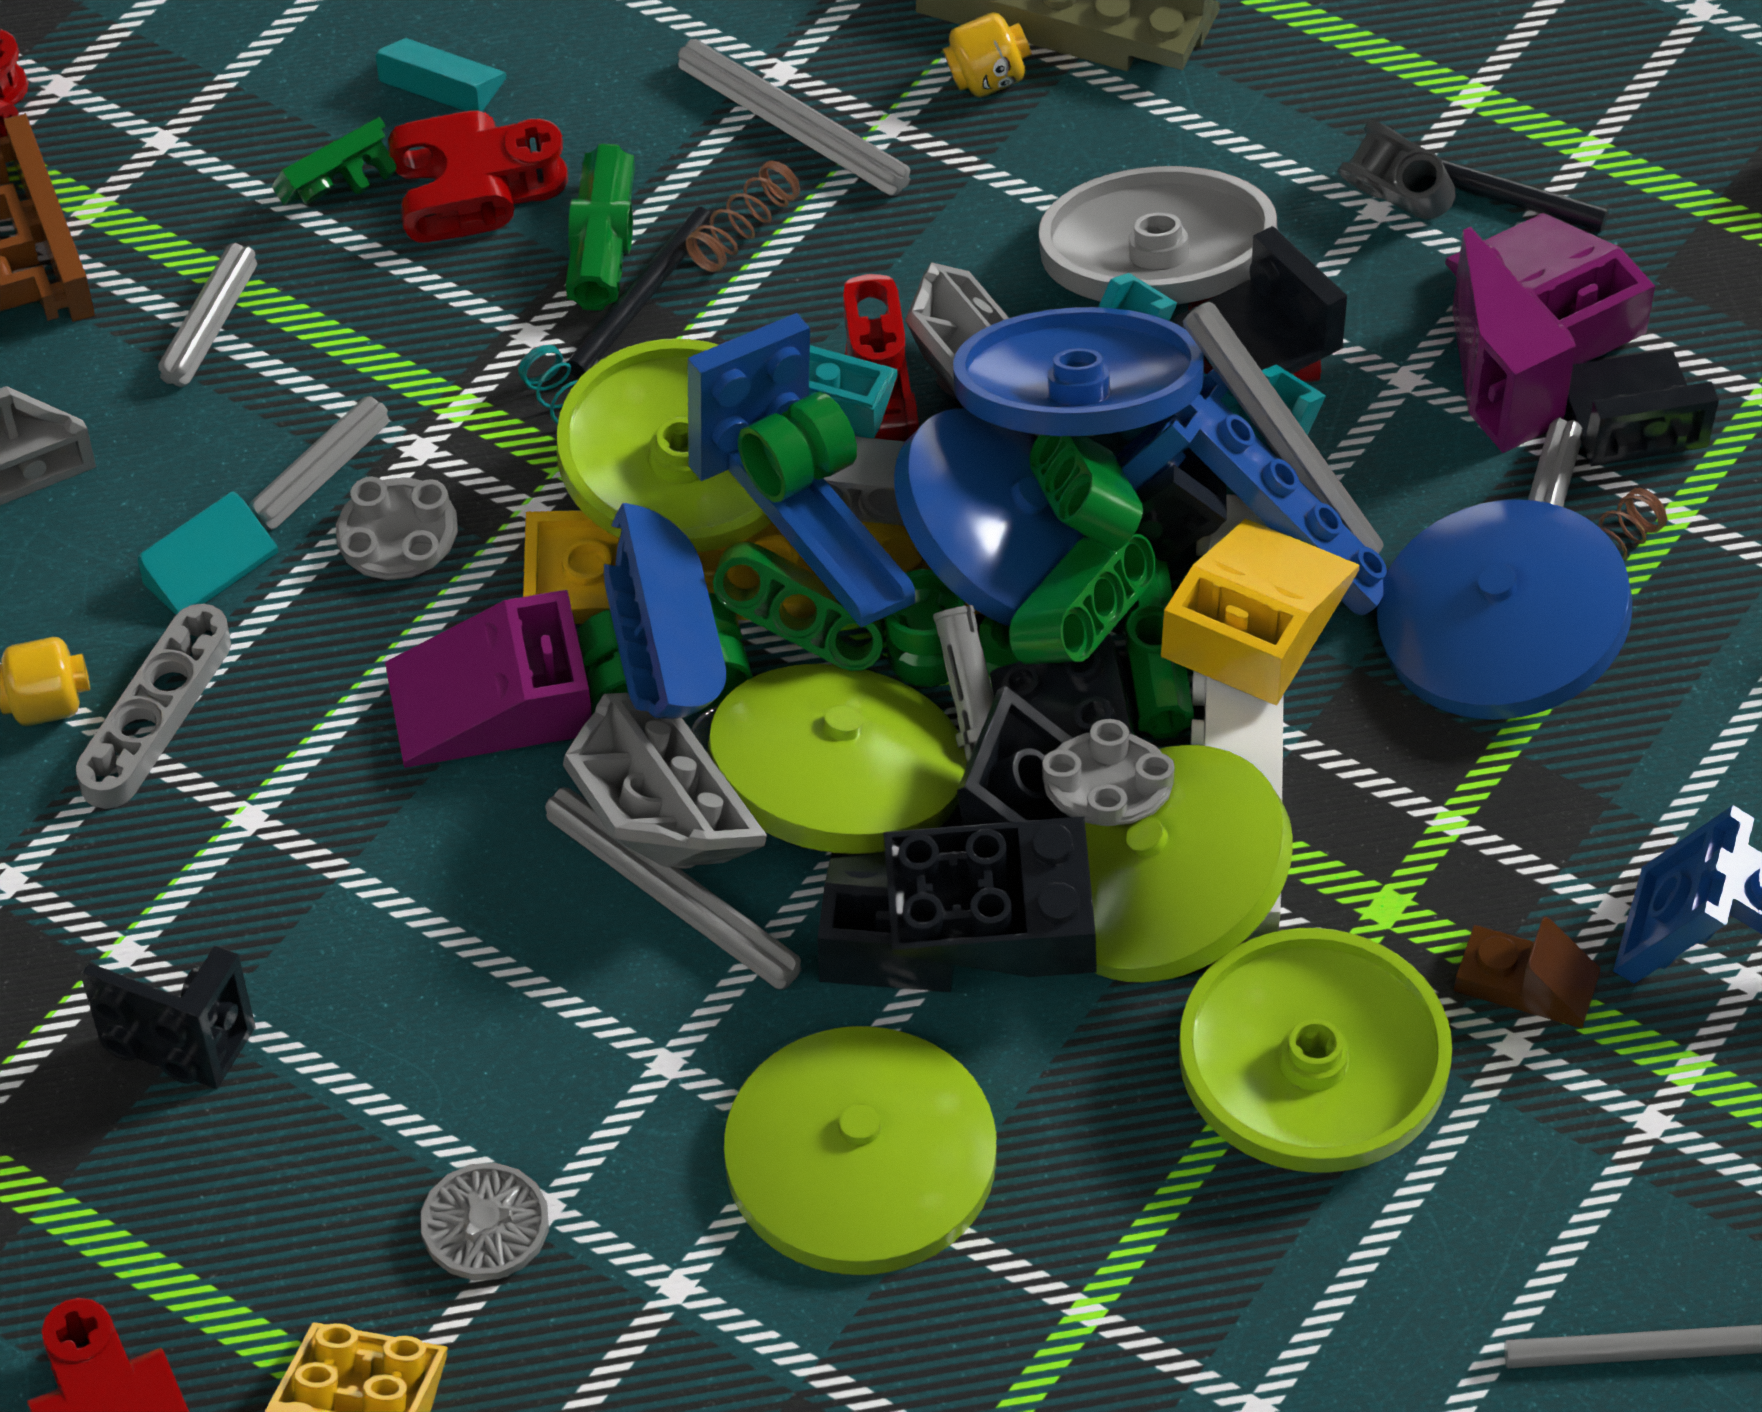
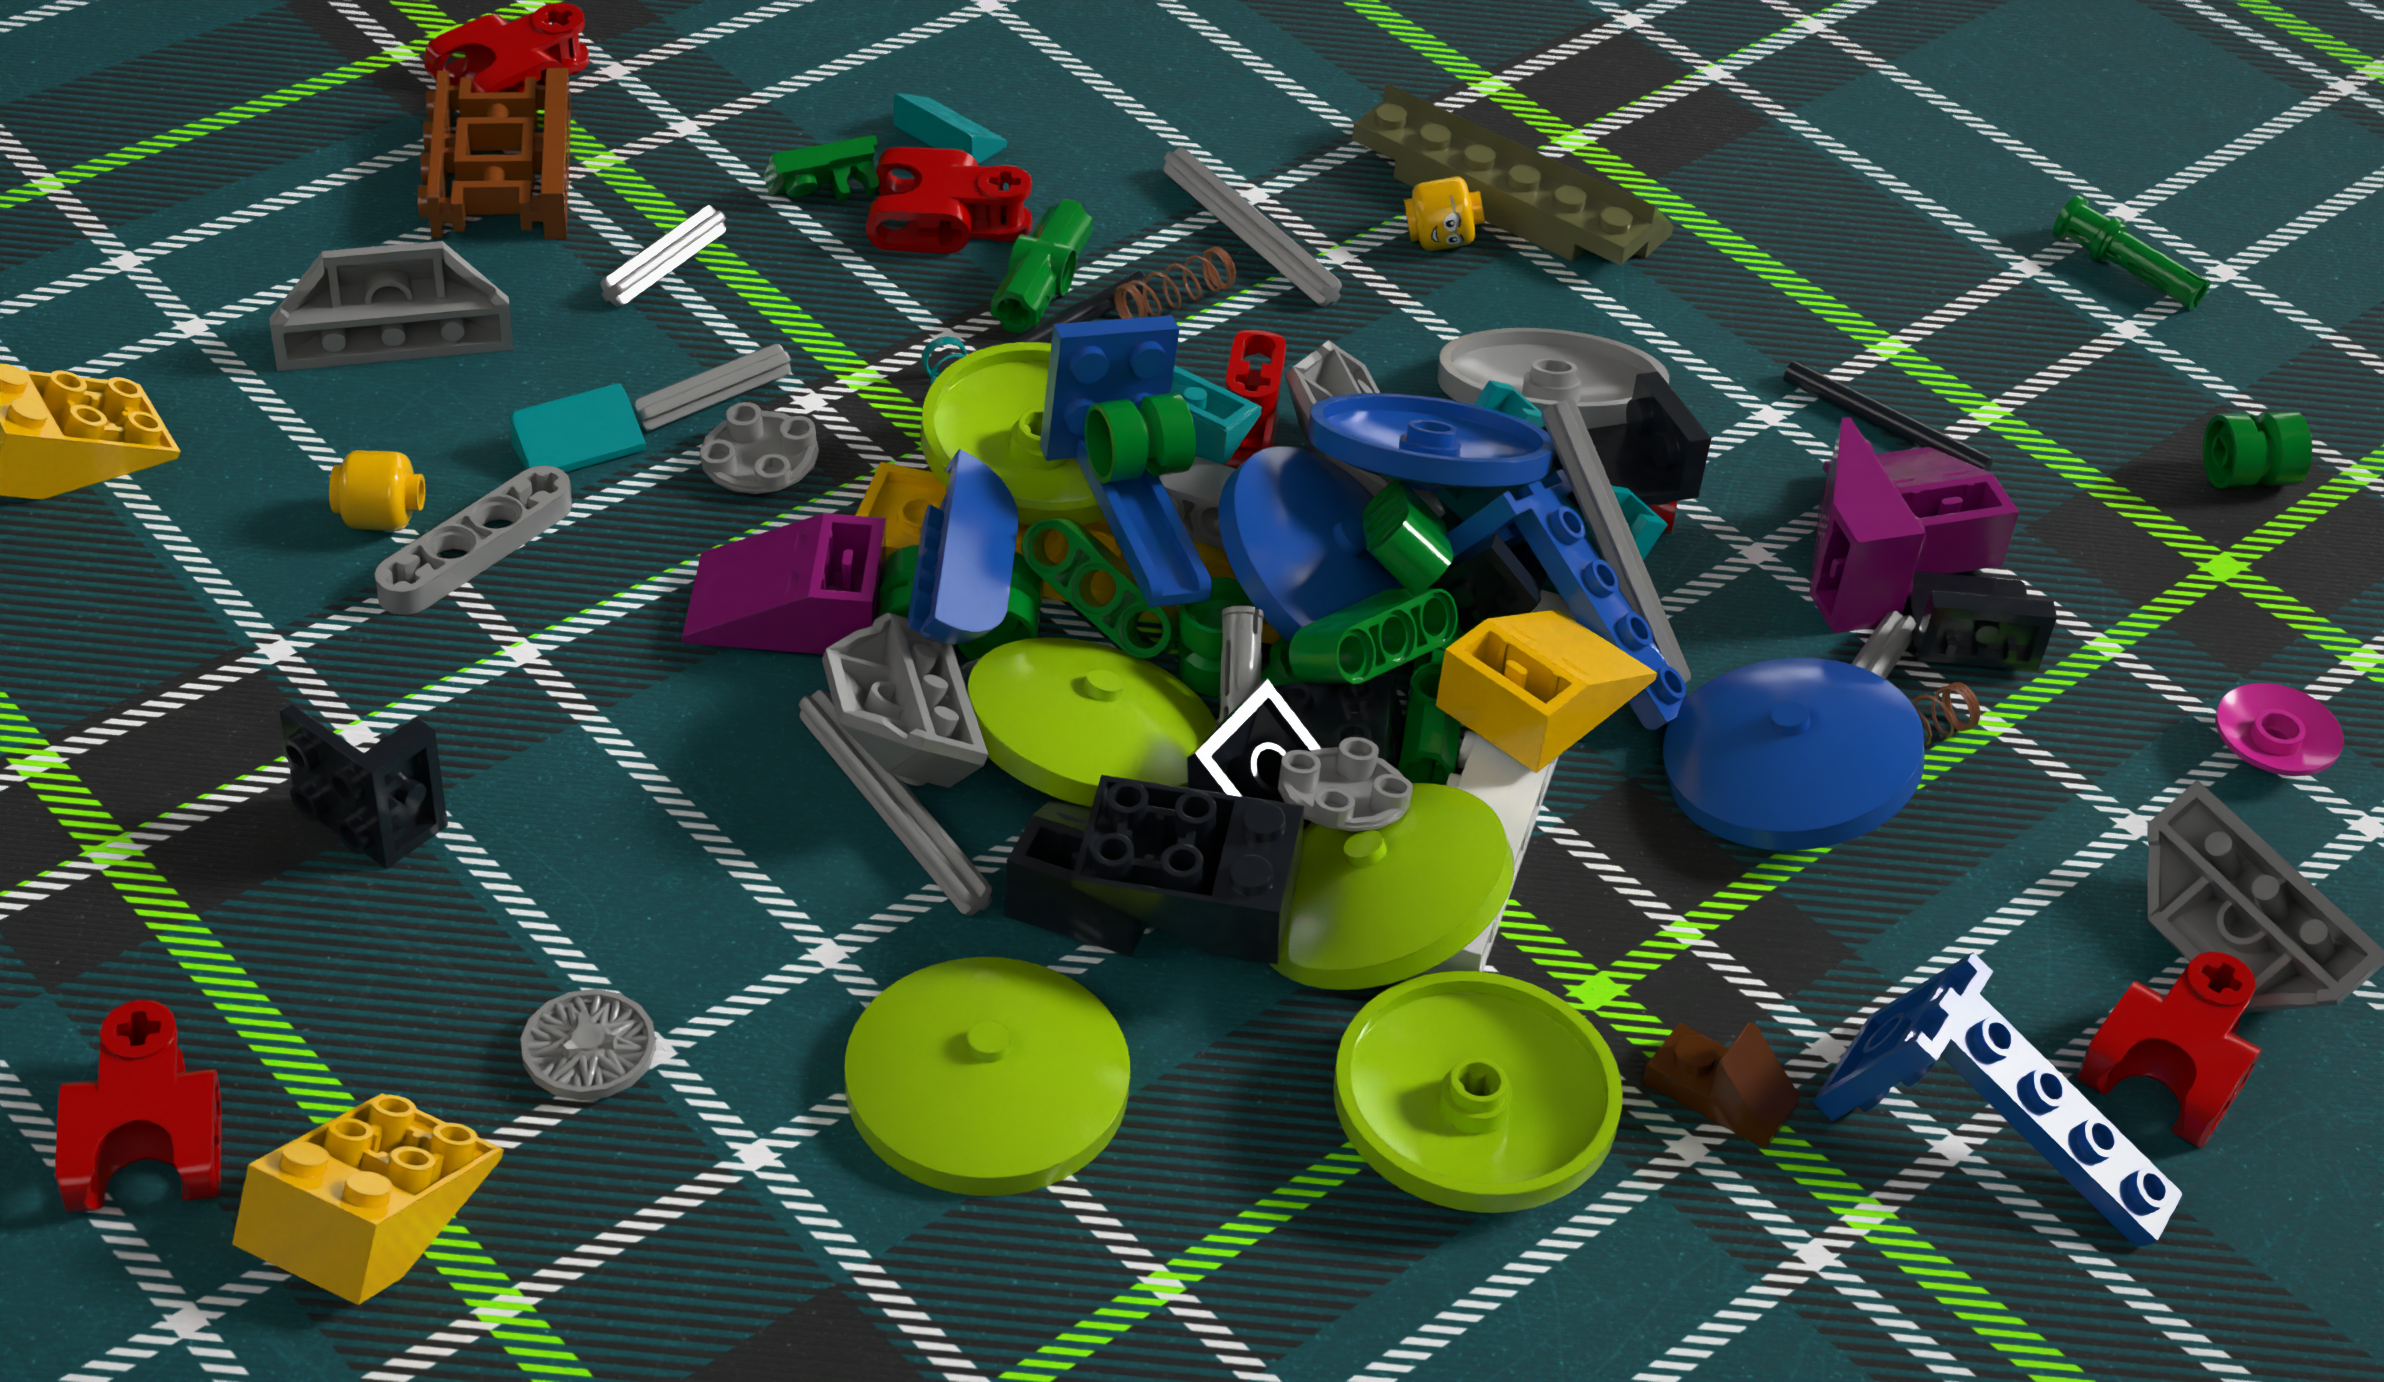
camera: 10 degrees right, 10 degrees down
(1391, 165) = (1792, 378): dark grey piece -> none

